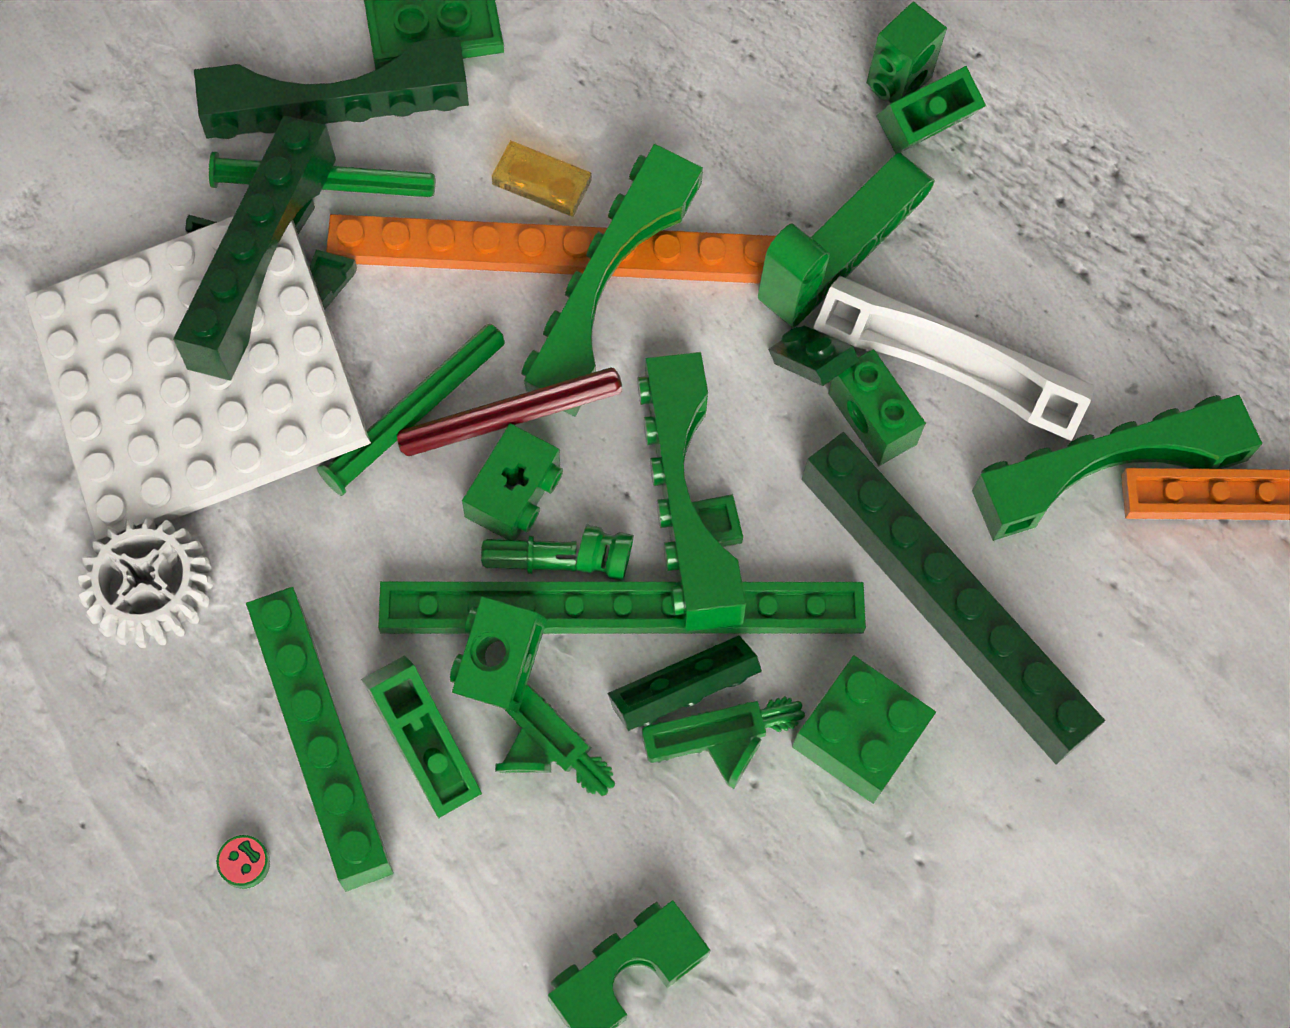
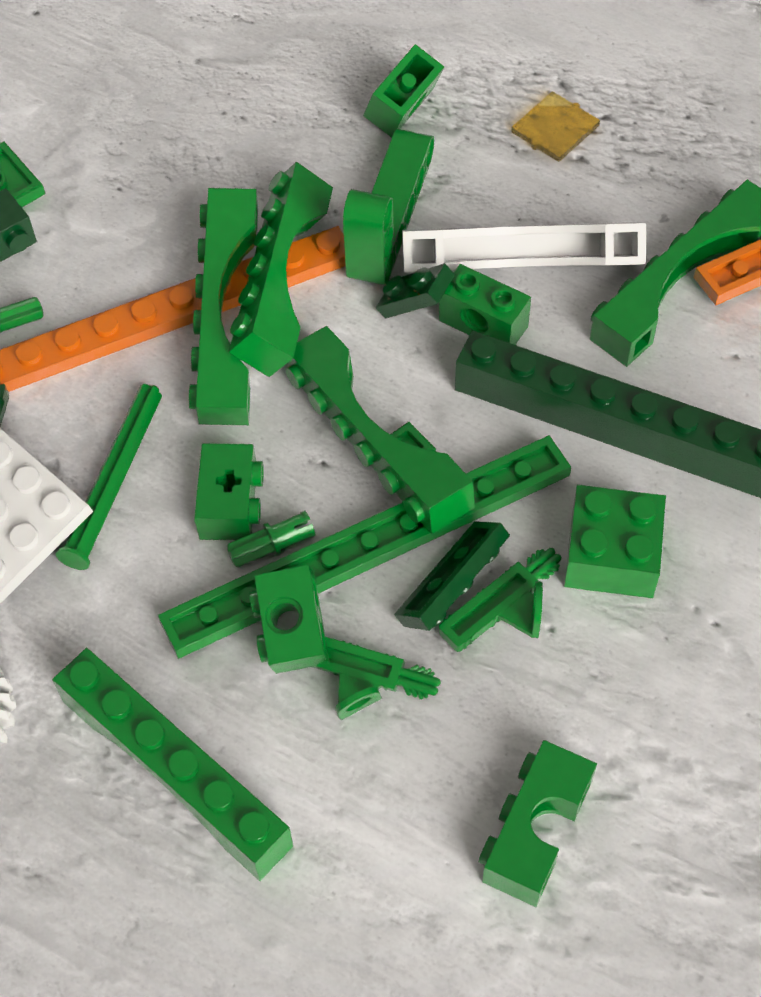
camera: 20 degrees left, 10 degrees down
(243, 861) = (157, 899): tile -> none
(421, 735) = (257, 717): green slope -> none
(510, 410) = (191, 439): dark red axle -> none
(541, 178) = (126, 264): clear yellow plate -> none
(594, 548) = (322, 510): green wheel -> none
(639, 322) = (266, 324): none -> green arch
(905, 54) = (362, 58): green brick -> none
(1078, 223) = (555, 126): none -> clear yellow piece

